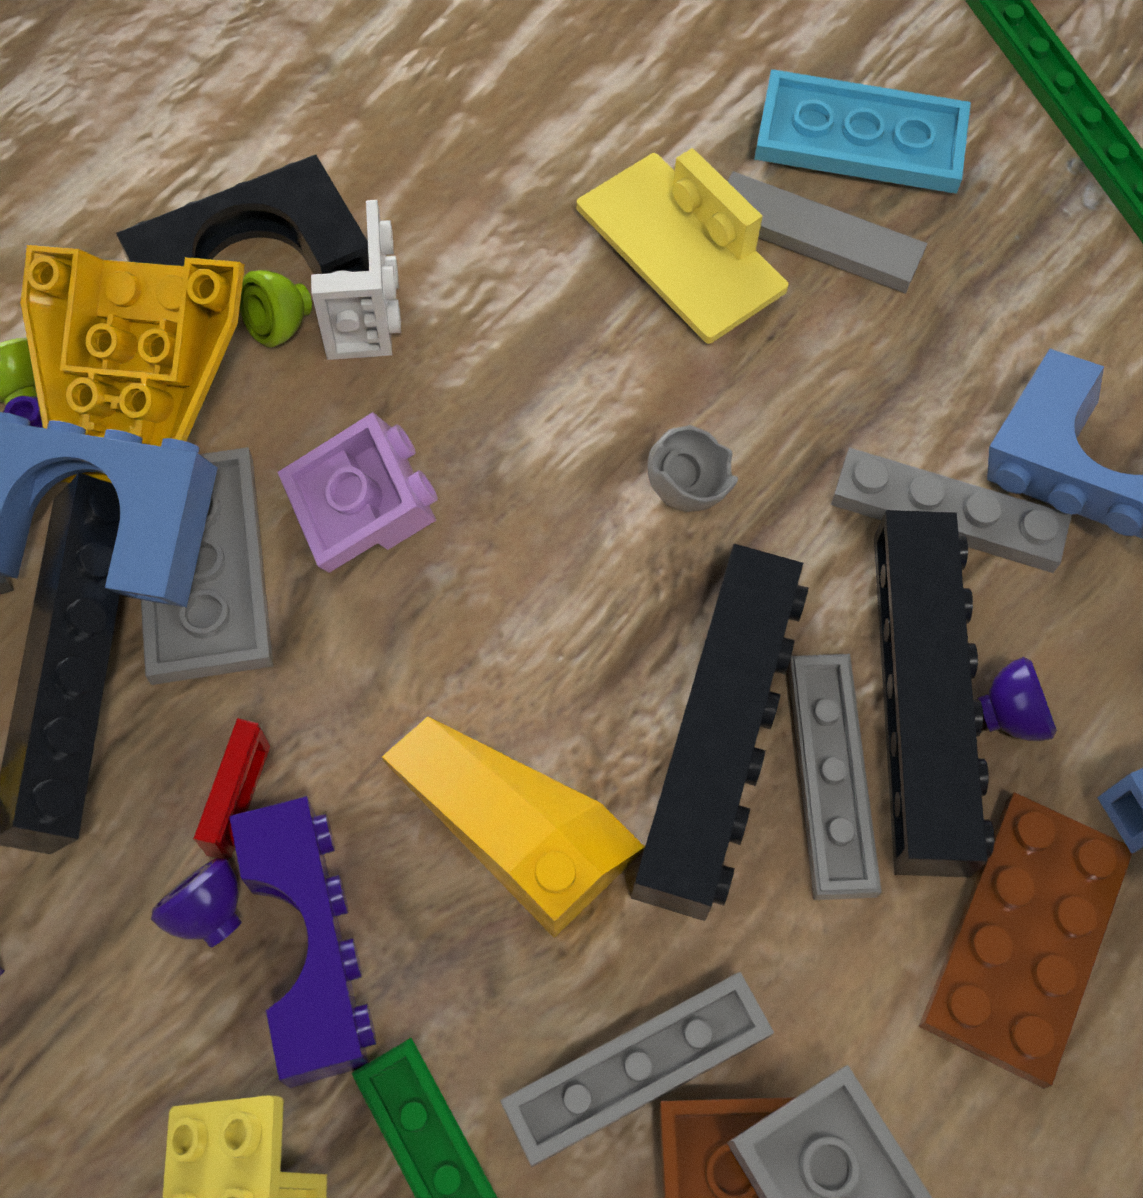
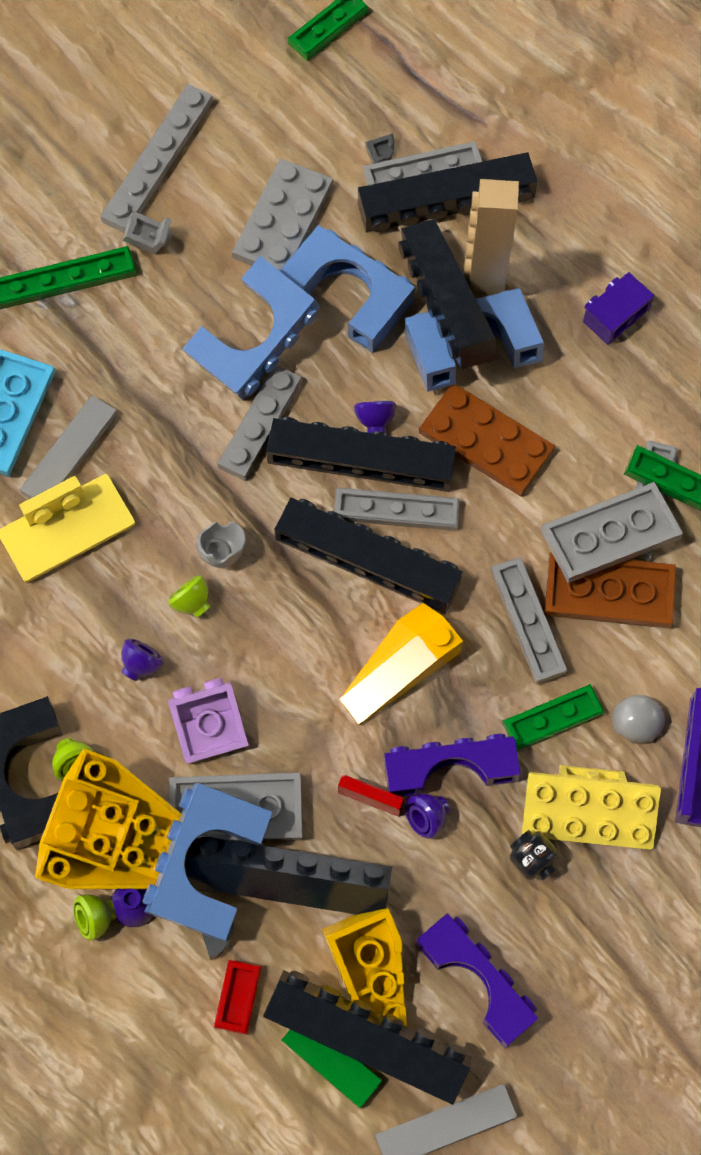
camera: 80 degrees left, 5 degrees up
(113, 1134) = (534, 855): none -> black head
(361, 307) = (83, 692): white bracket -> none
(462, 376) = (139, 659): none -> dark purple brick
(584, 438) = (191, 597): none -> lime brick

